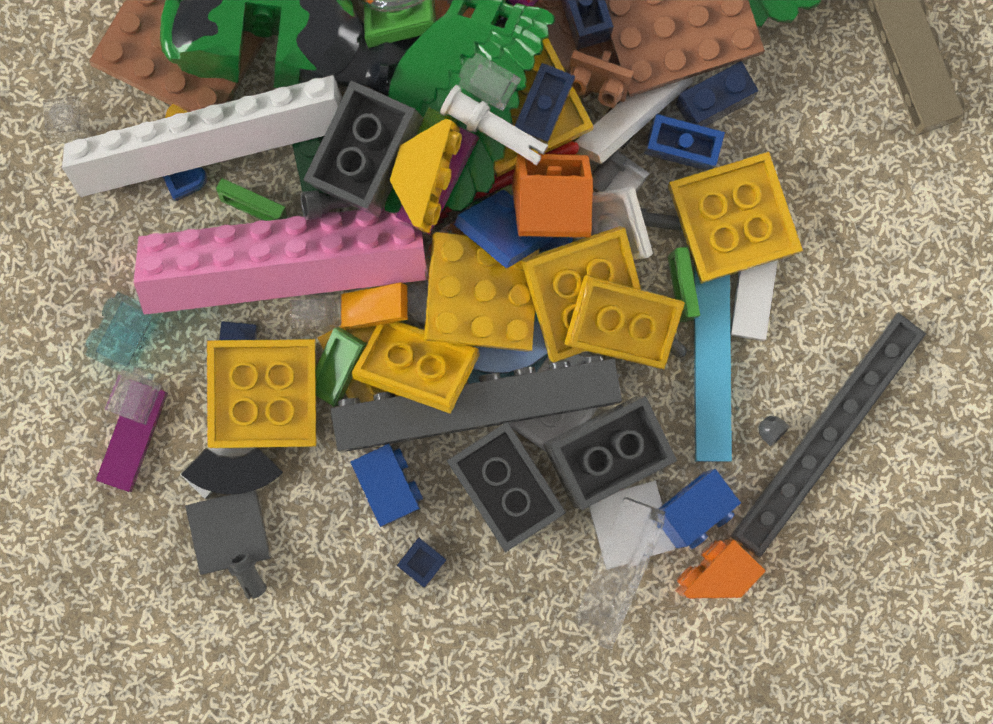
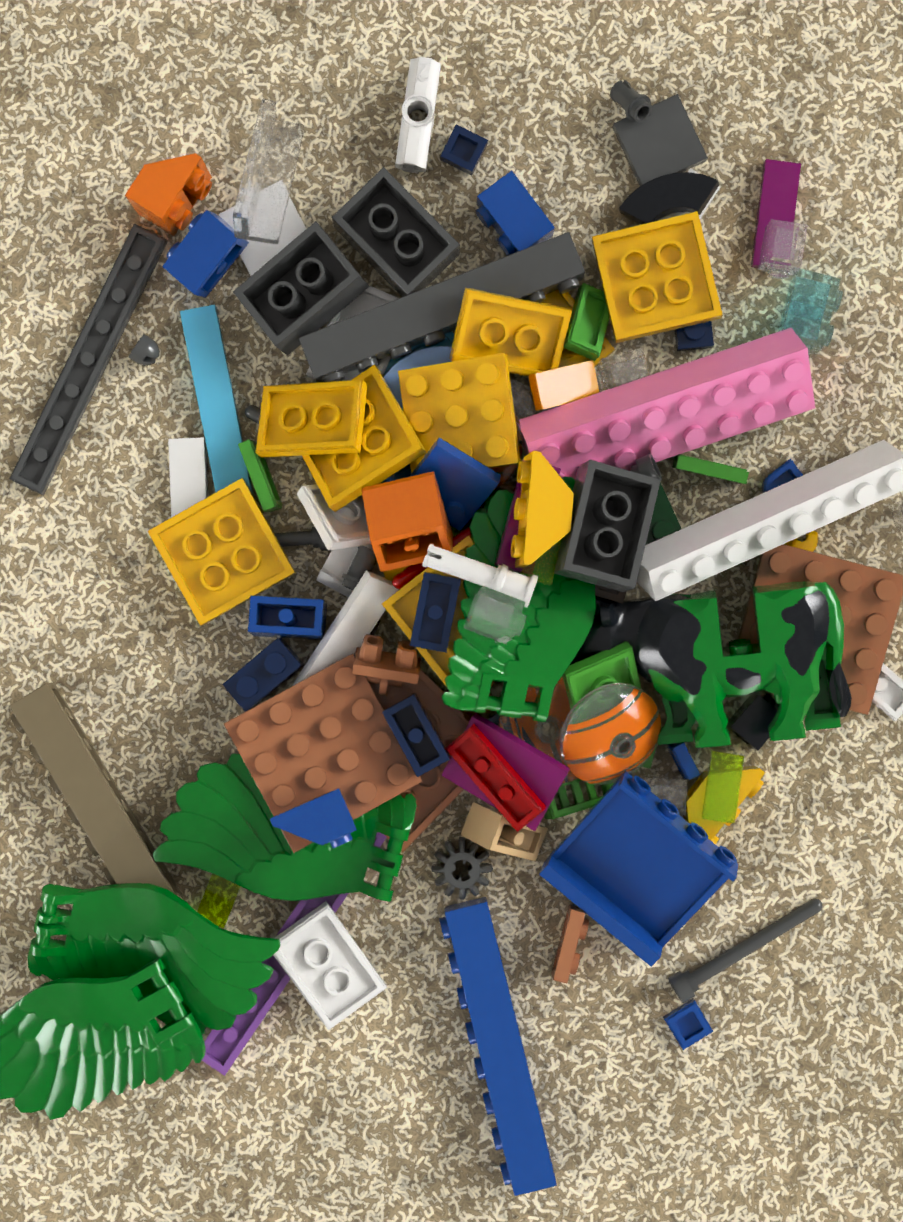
camera: 170 degrees right, 5 degrees up
(452, 628) = (419, 95): none -> white piece

